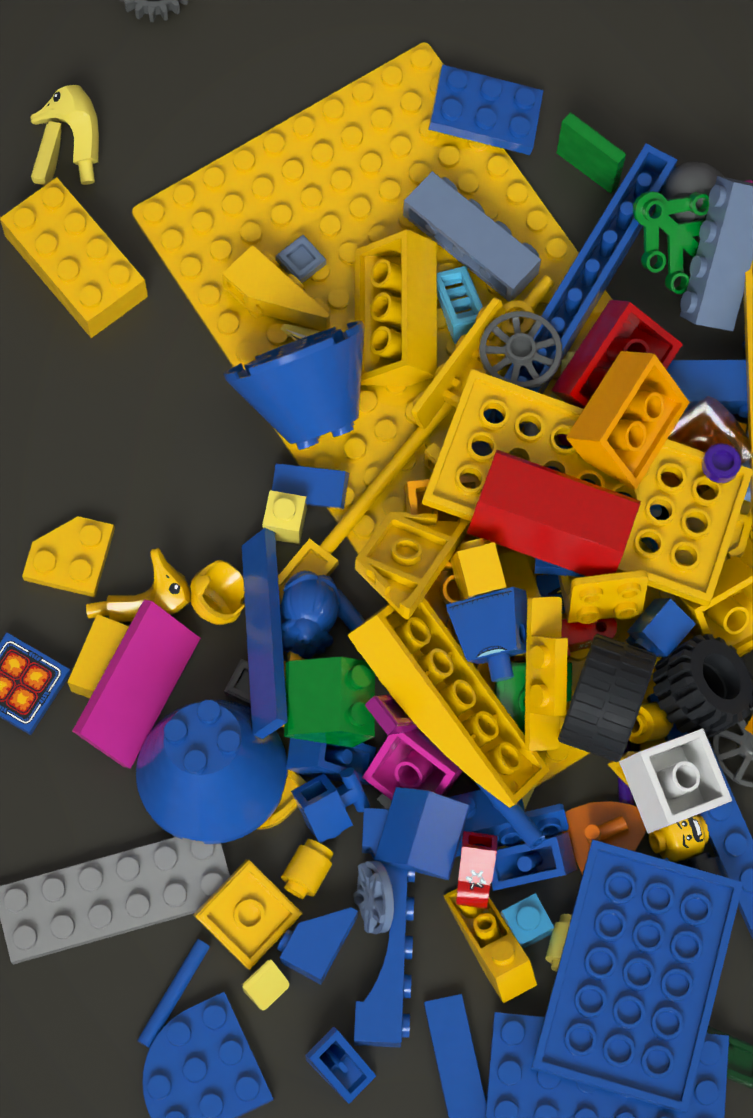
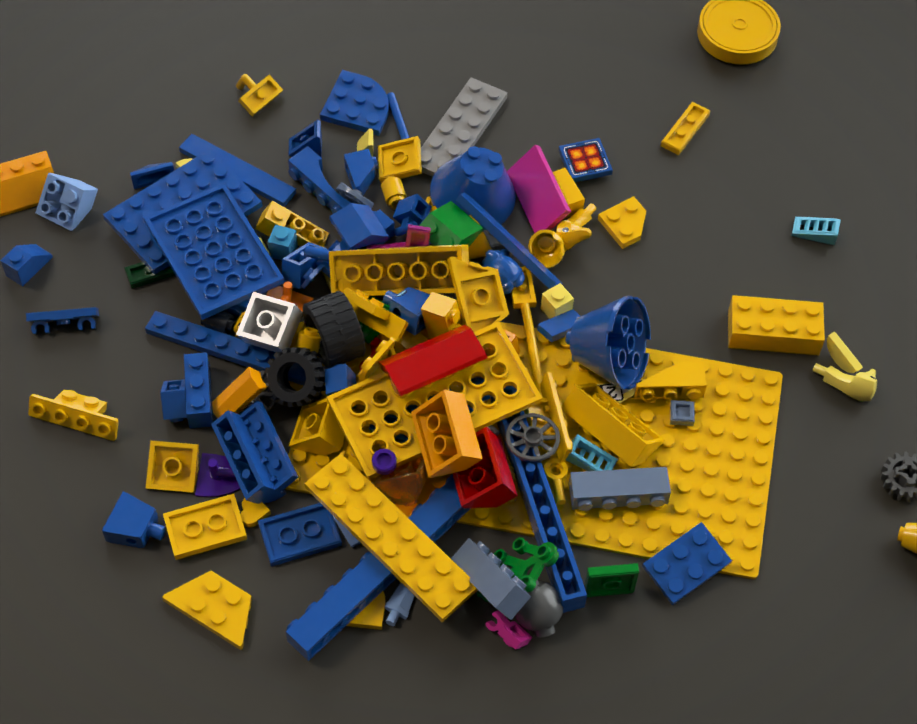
camera: 135 degrees right, 15 degrees down
(476, 869) = (320, 231): leg -> none

